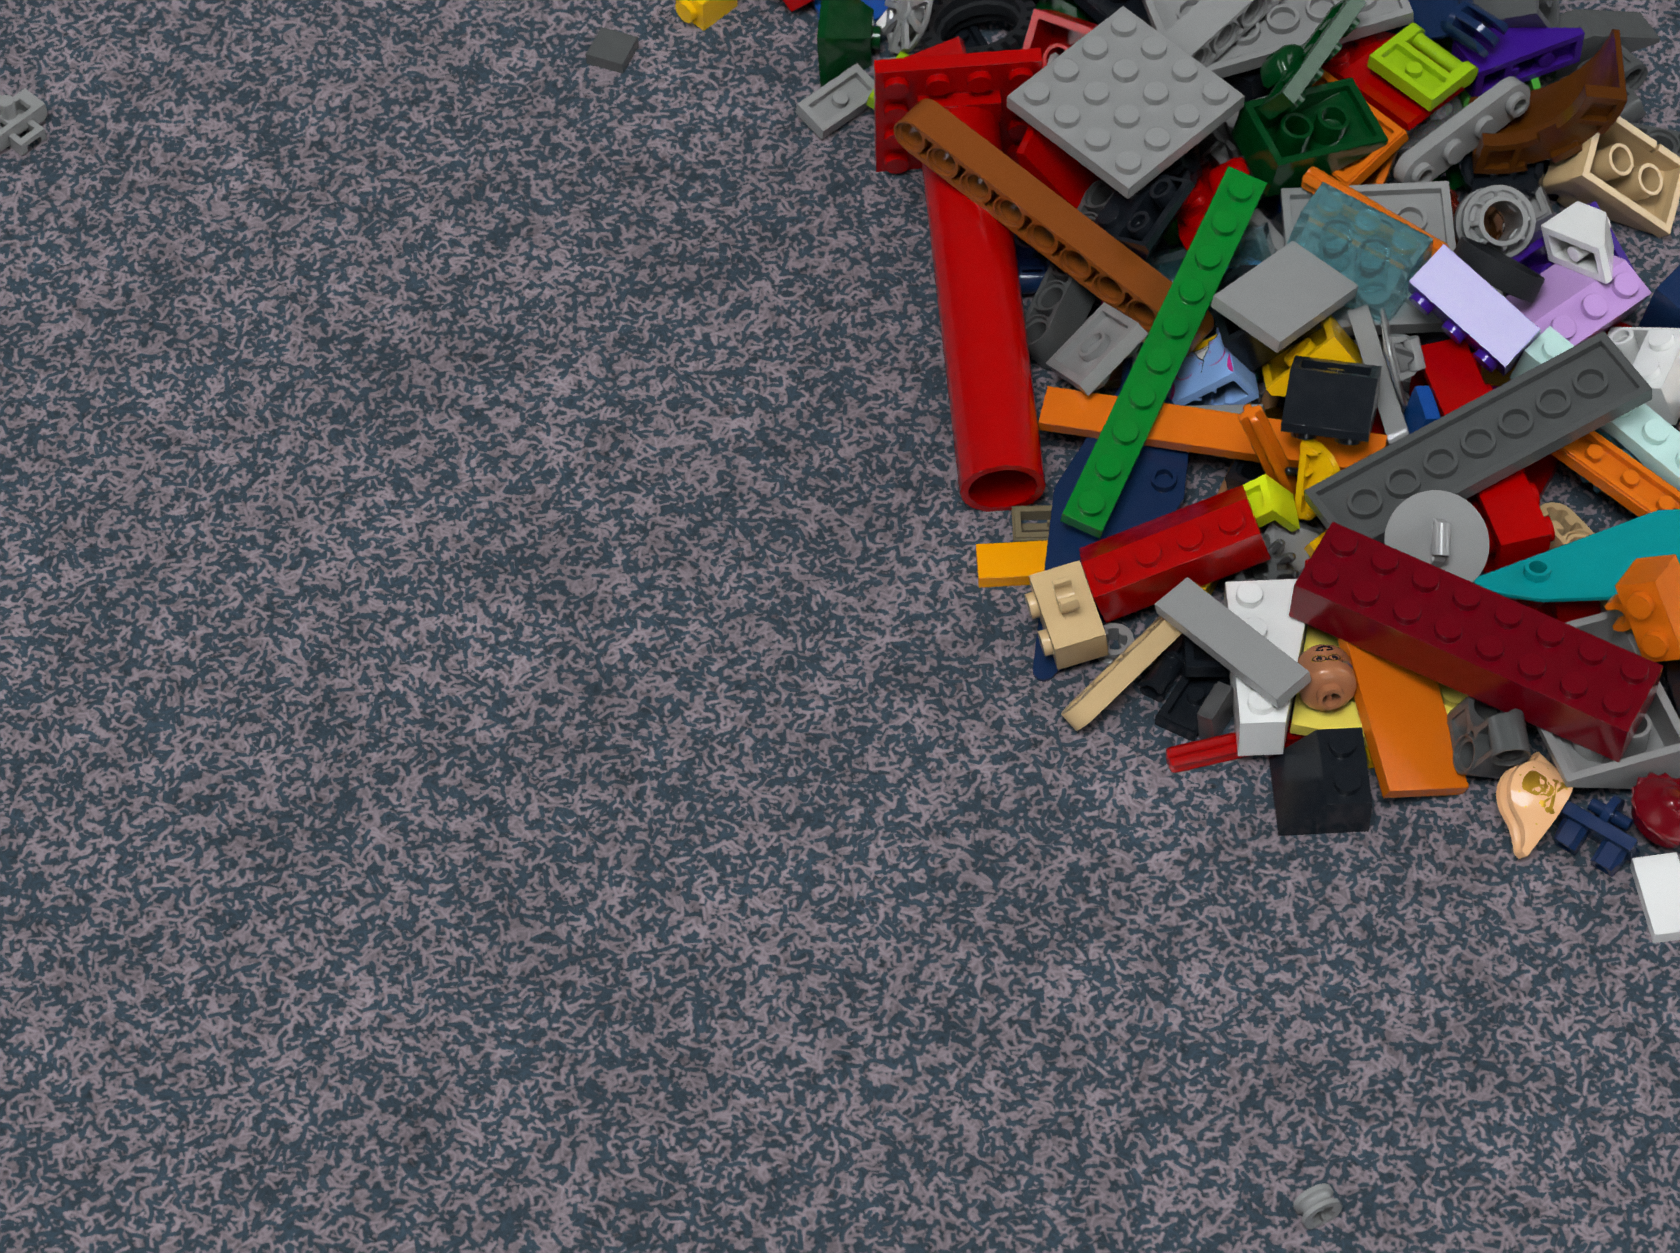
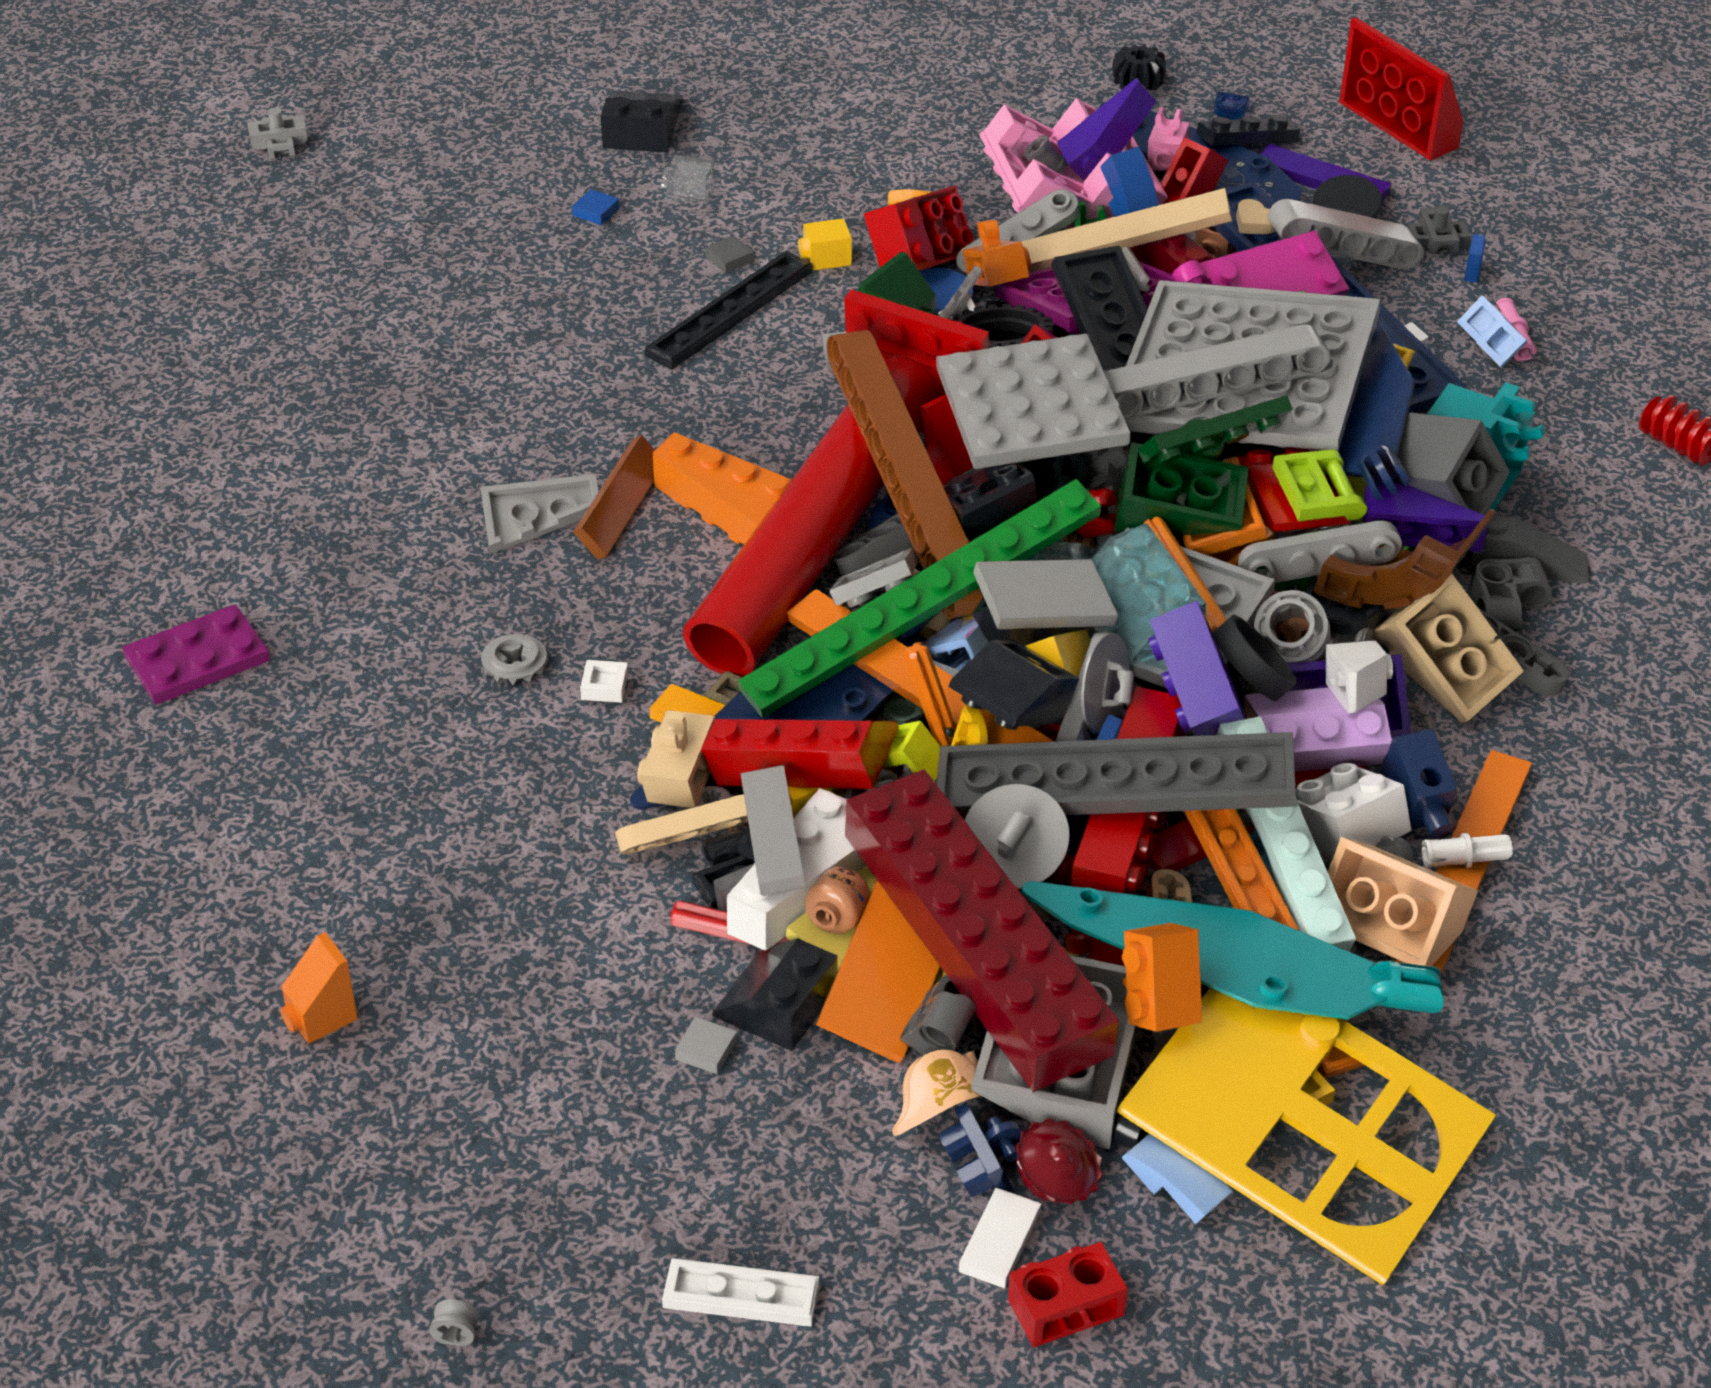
camera: 30 degrees right, 10 degrees down
(427, 56) = (595, 207): none -> blue tile
(507, 740) = (195, 654): none -> magenta plate
(667, 116) = (728, 310): none -> black tile
(687, 427) = (534, 508): none -> light grey wing
(758, 376) = (617, 499): none -> dark orange tile
(827, 586) = (510, 648): none -> light grey gear
(857, 321) = (716, 485): none -> orange wedge
(914, 572) = (604, 681): none -> white plate
(956, 994) = (319, 992): none -> orange slope
(1201, 470) = (900, 710): none -> sand green tile
(1300, 864) = (706, 1045): none -> light grey tile
(1507, 1054) = (741, 1292): none -> white tile

